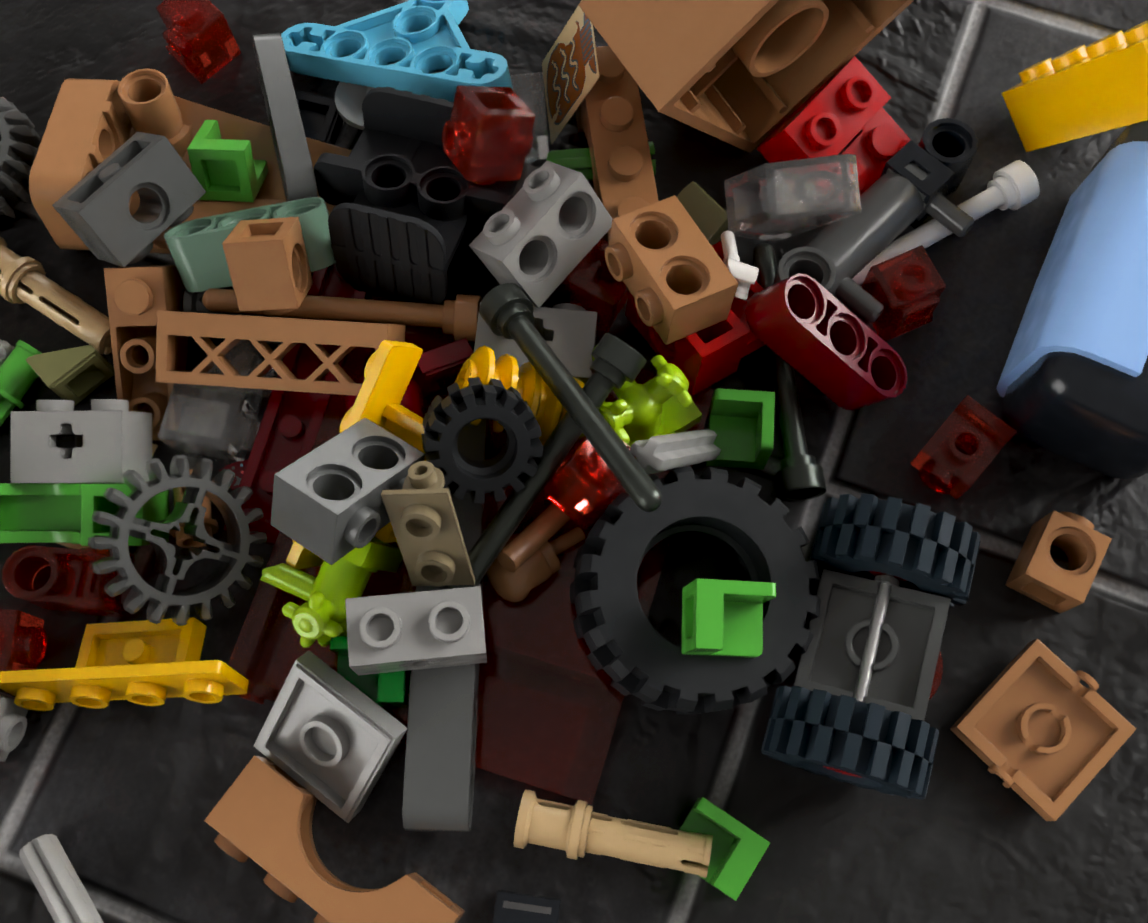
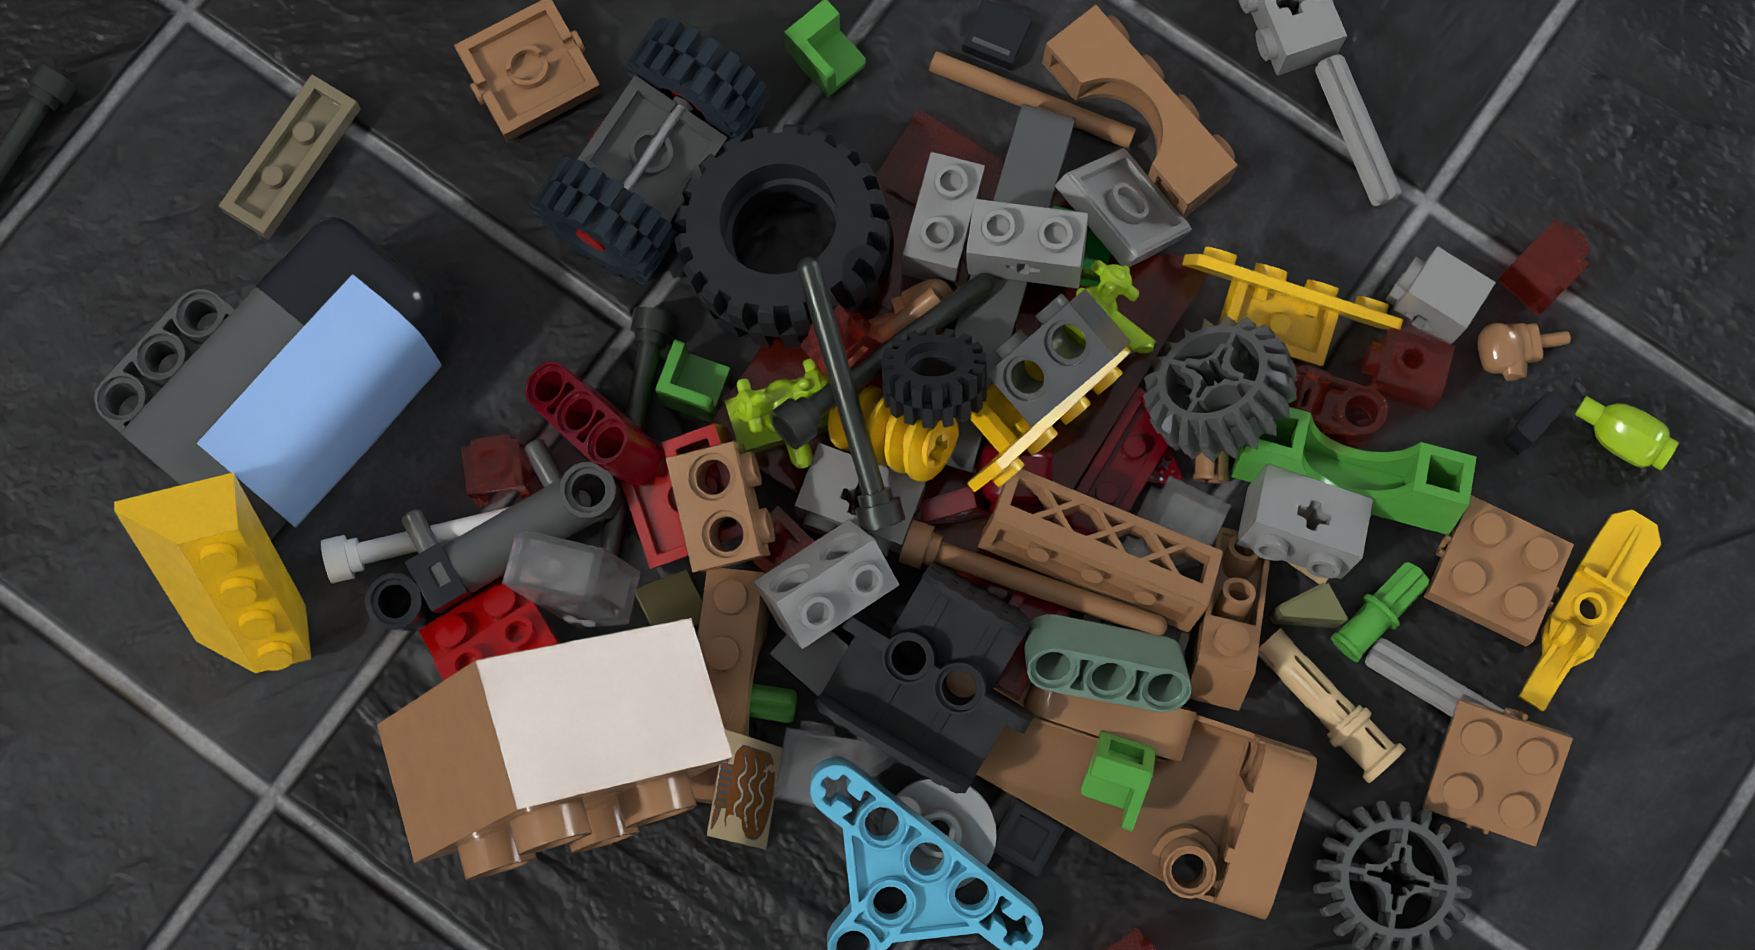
camera: 170 degrees left, 5 degrees up
(100, 202) = (1218, 736): dark grey brick -> none
(268, 265) = (1092, 611): medium nougat brick -> none
(284, 117) = (1051, 812): dark grey beam -> none
(428, 529) = (996, 311): dark tan hinge -> none
(464, 856) = (1021, 94): none -> medium nougat piece
(488, 134) = (852, 681): clear red brick -> none
(525, 661) = (942, 219): none -> light grey brick
(582, 830) = (929, 87): tan pin -> none
(675, 450) = (764, 343): light grey axle -> none
(724, 617) = (773, 180): bright green panel -> none
(742, 272) = (654, 510): white hand -> none
(972, 430) = (503, 330): clear red brick -> none
(1041, 578) = (456, 171): medium nougat brick -> none

